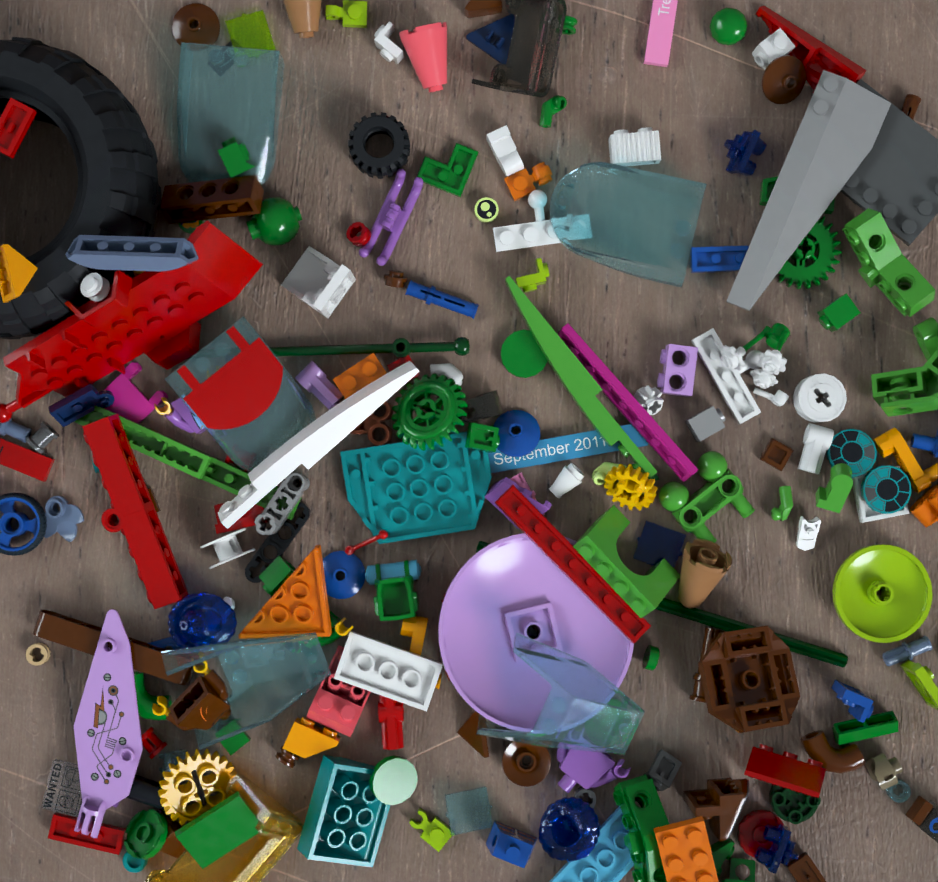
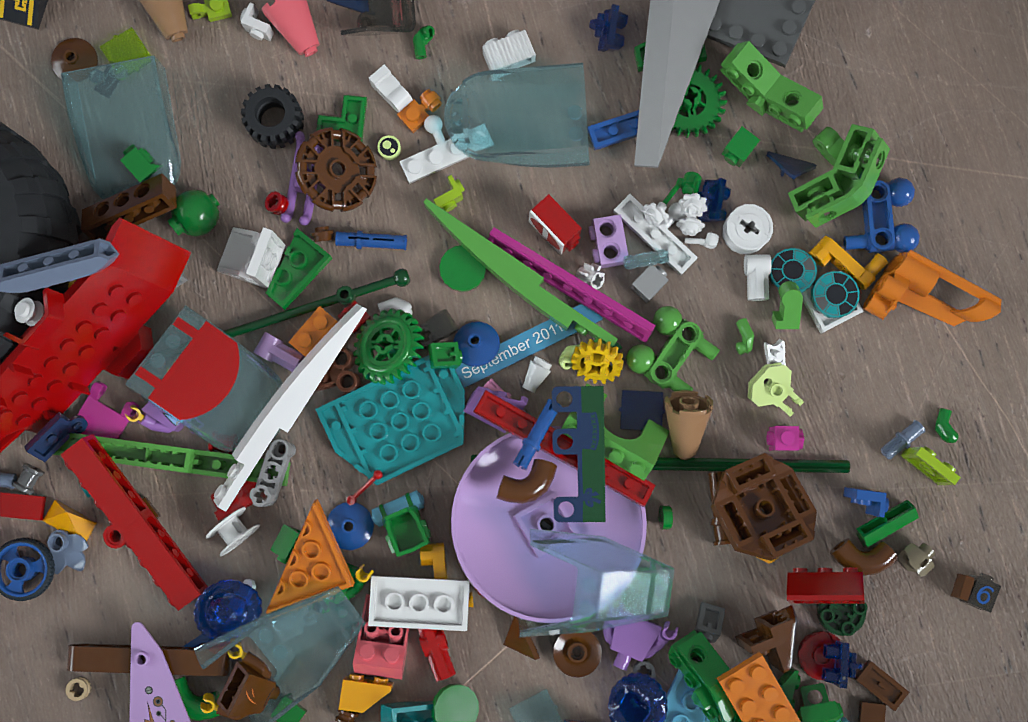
camera: 20 degrees left, 5 degrees down
(69, 487) = (66, 518): none -> light orange slope
(280, 544) = (277, 511): black beam -> none
(361, 307) = (299, 267): none -> green wing
(414, 219) = (323, 173): none -> reddish brown plate
(527, 594) = (530, 487): none -> reddish brown cylinder
(550, 544) = (532, 442): none -> blue pin
(597, 571) = (590, 450): none -> piece
(629, 339) = (555, 225): none -> red piece
(709, 400) = (646, 259): none -> clear light blue axle
(776, 454) = (724, 293): reddish brown tile -> none
(791, 616) = (785, 438): none -> dark pink brick
(796, 353) = (715, 193): none -> clear blue hips
(797, 565) = (775, 389): none -> yellowish green hinge
(883, 347) = (791, 166): none -> dark blue piece
(903, 597) = (882, 385): lime dish -> none
(904, 796) = (943, 579): clear light blue bush -> none

